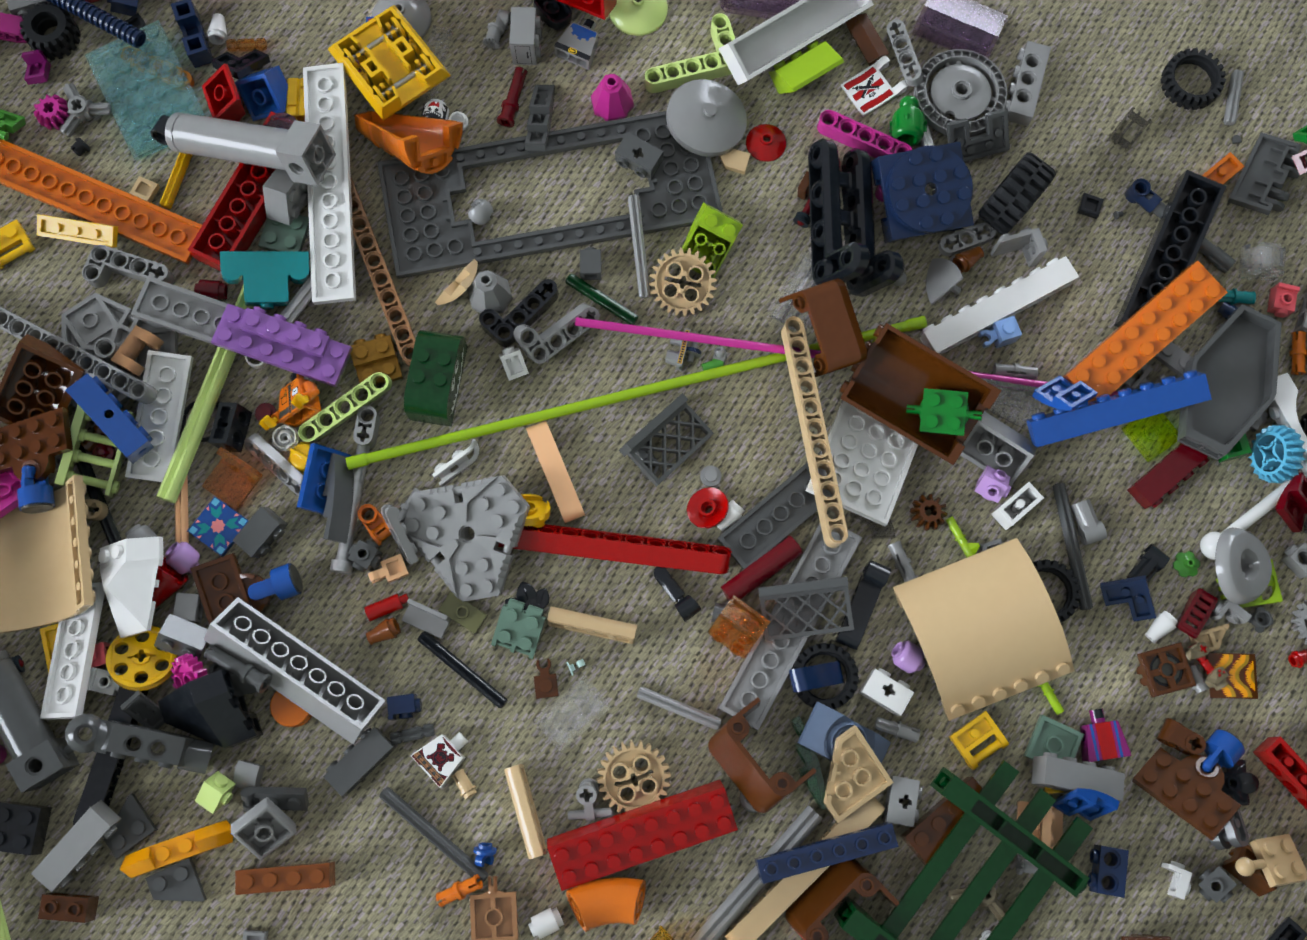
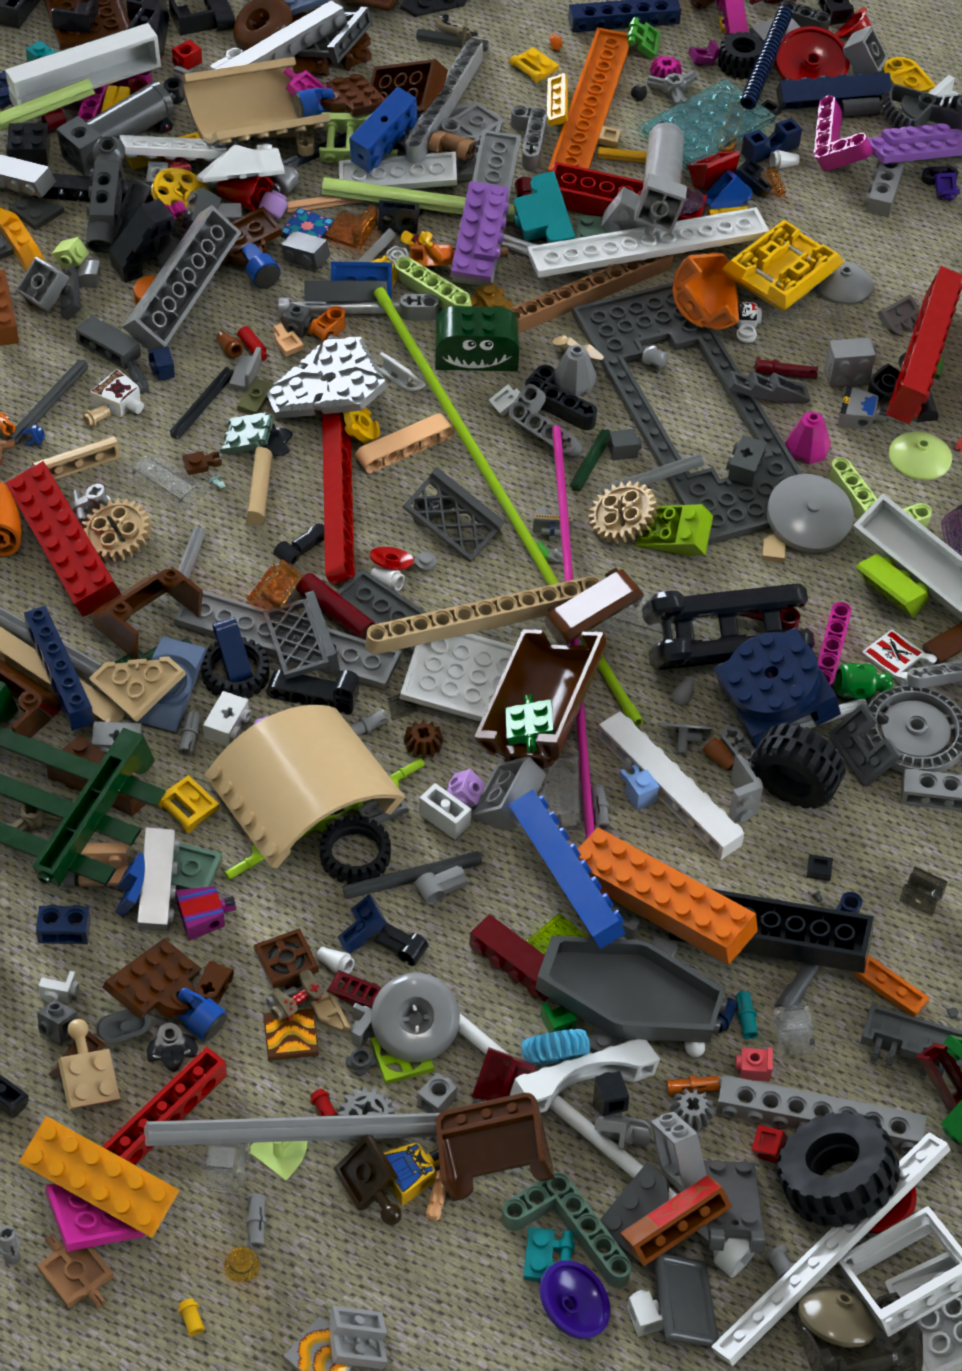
camera: 80 degrees right, 25 degrees down
(246, 673) = (174, 238): dark grey pin -> none
(399, 533) = (320, 333): light grey plate -> none
(765, 150) = (811, 577): red dish -> none
(1063, 394) = (573, 817): blue slope -> none

